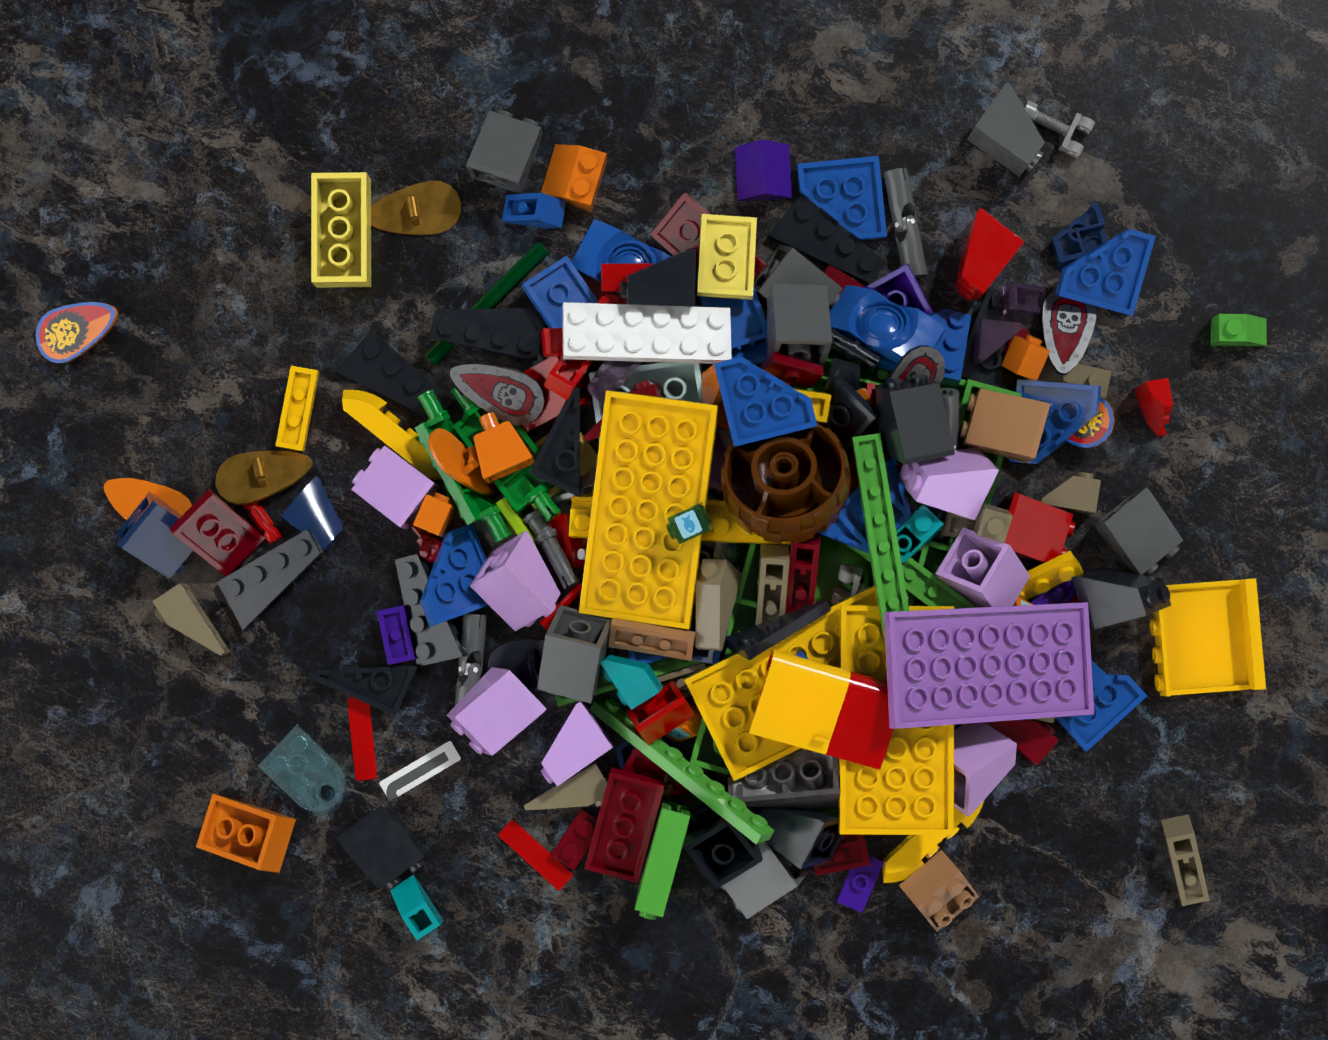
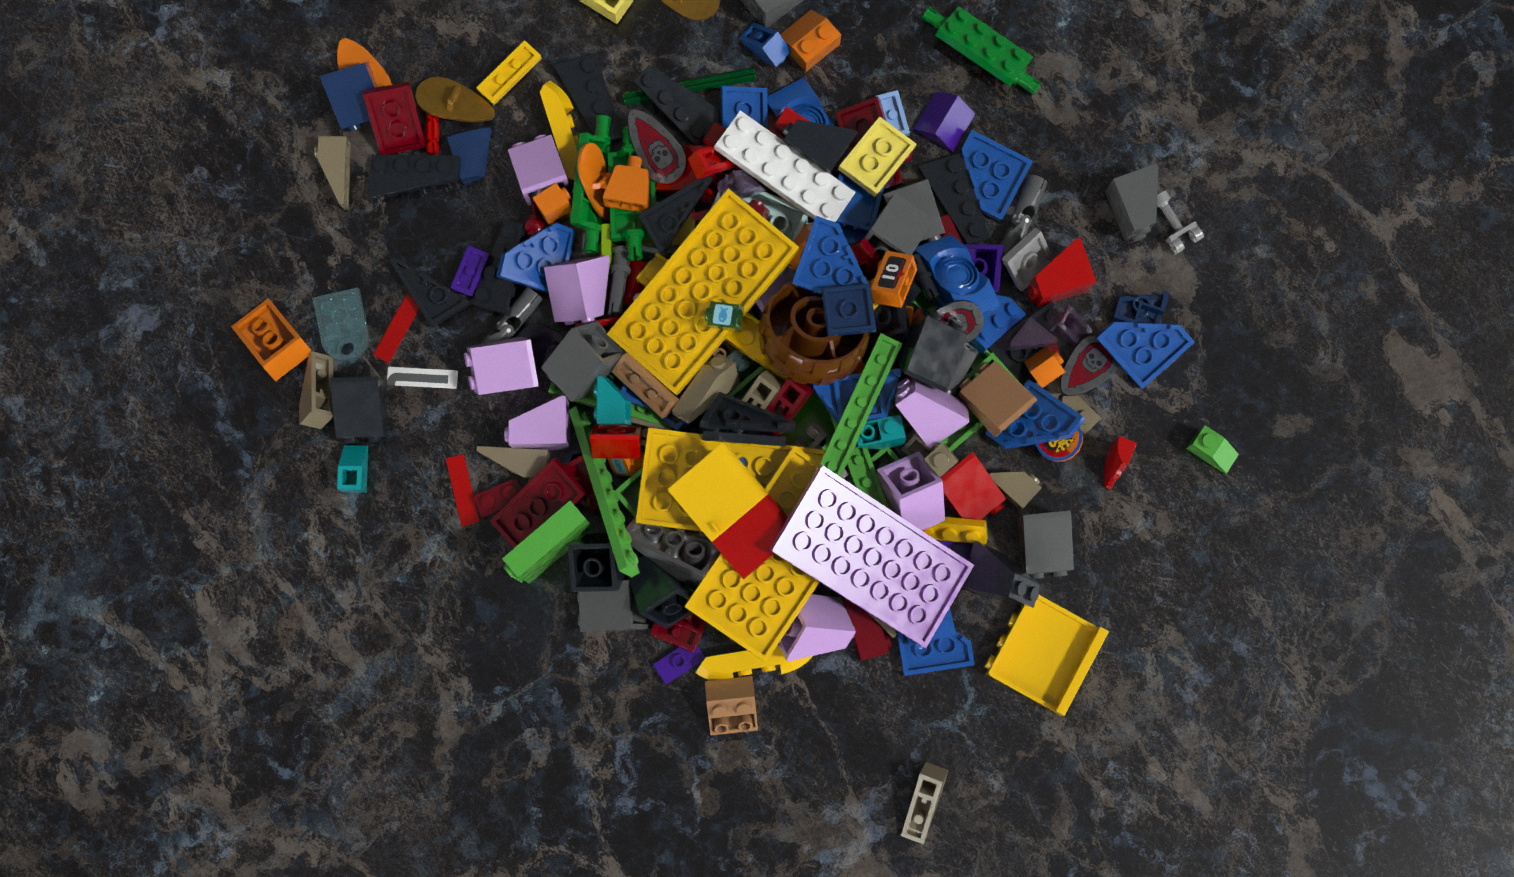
camera: 30 degrees right, 5 degrees down
(328, 858) = (316, 395): none -> dark tan slope
(709, 196) = (894, 111): none -> light blue plate
(754, 70) = (984, 47): none -> green plate
(764, 611) = (735, 414): none -> black wing
(809, 438) = (848, 310): none -> dark blue plate
(830, 375) = (893, 279): none -> orange brick
(940, 260) = (1027, 259): none -> light grey plate

